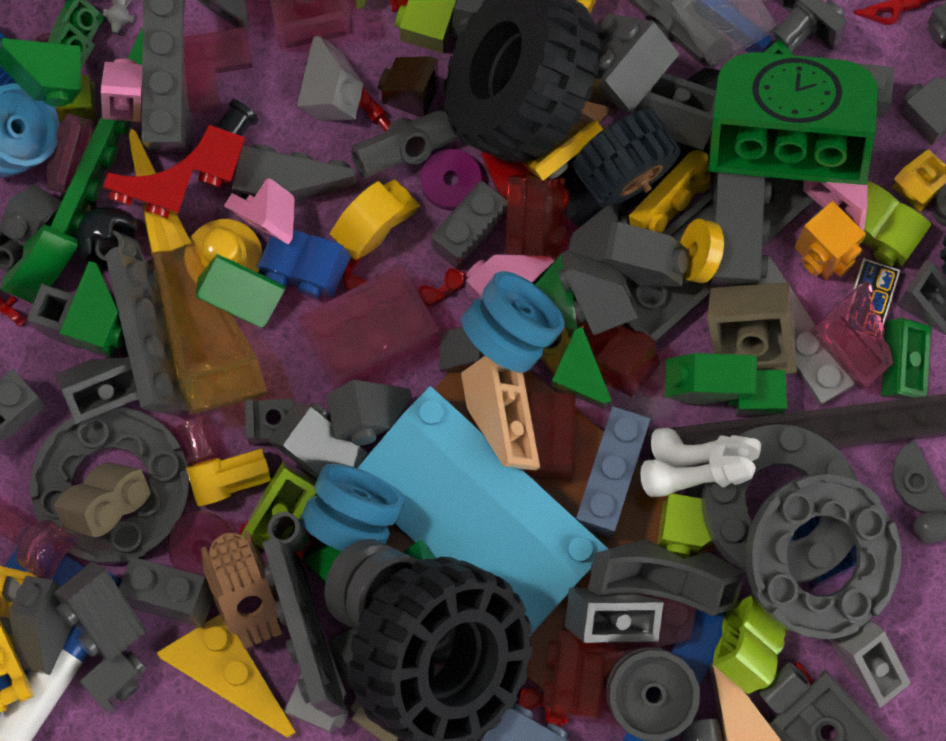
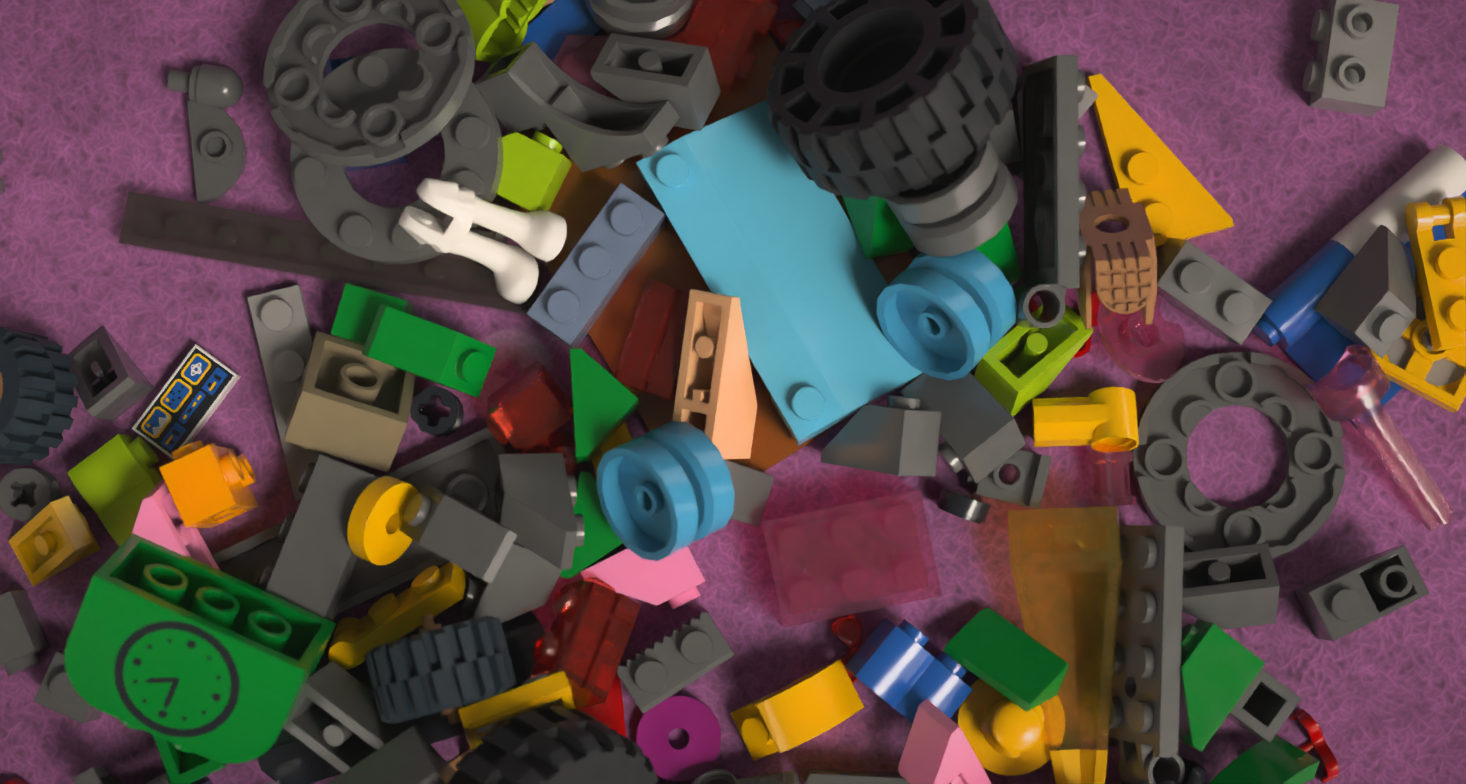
camera: 165 degrees left, 10 degrees up
(99, 612) = (1301, 279): dark grey brick -> none
(102, 499) = (1258, 432): dark tan brick -> none
(114, 680) = (1296, 205): dark grey brick -> none
(301, 390) = (962, 505): none -> black tile
(452, 282) = (754, 586): red piece -> none
(699, 335) = (428, 398): none -> black bush
(855, 337) = (223, 353): clear pink wing -> none
(910, 355) = (170, 311): green slope -> none

